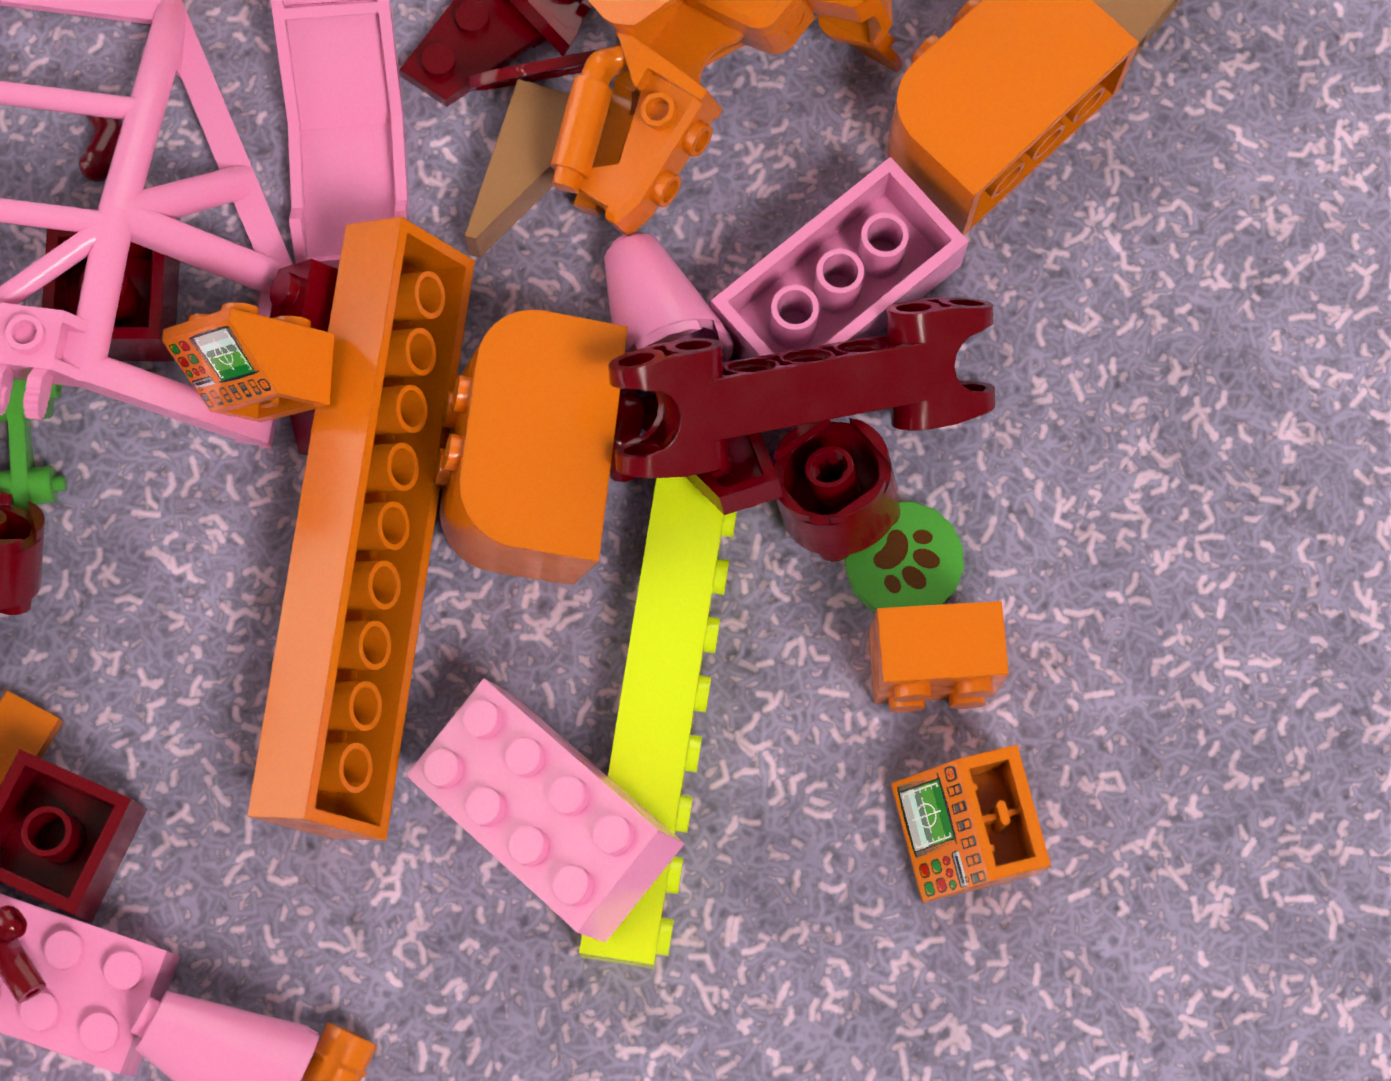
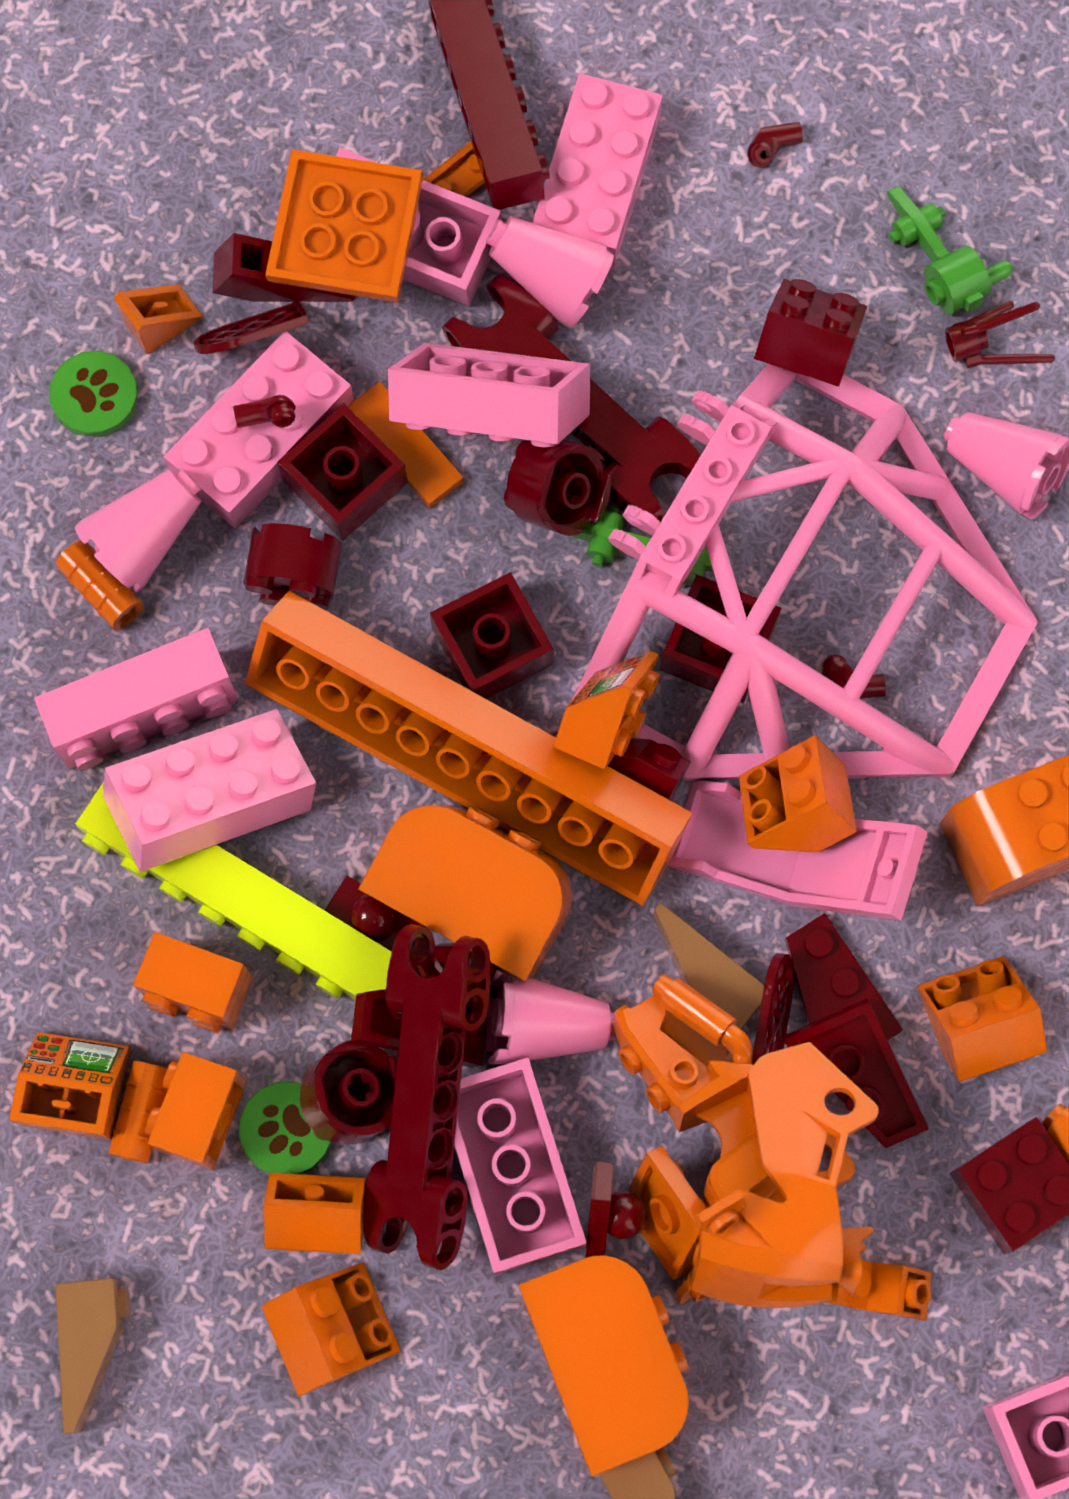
camera: 115 degrees right, 0 degrees up
(207, 842) = (290, 560): none -> dark red brick
(210, 558) = (492, 637): none -> dark red brick
(281, 131) = (798, 800): none -> orange slope
(460, 957) = (137, 700): none -> bright pink brick
(612, 585) = (367, 914): none -> dark red tile
(788, 725) = (194, 982): none -> orange brick
(816, 88) = (670, 1211): none -> orange plate
(840, 151) = (618, 1214): none -> dark red tile
(961, 731) = (141, 1095): none -> orange axle
(988, 475) = (315, 1217): none -> orange brick
(1105, 410) = (330, 1328): none -> orange slope
(1241, 672) = (88, 1333): none -> medium nougat slope

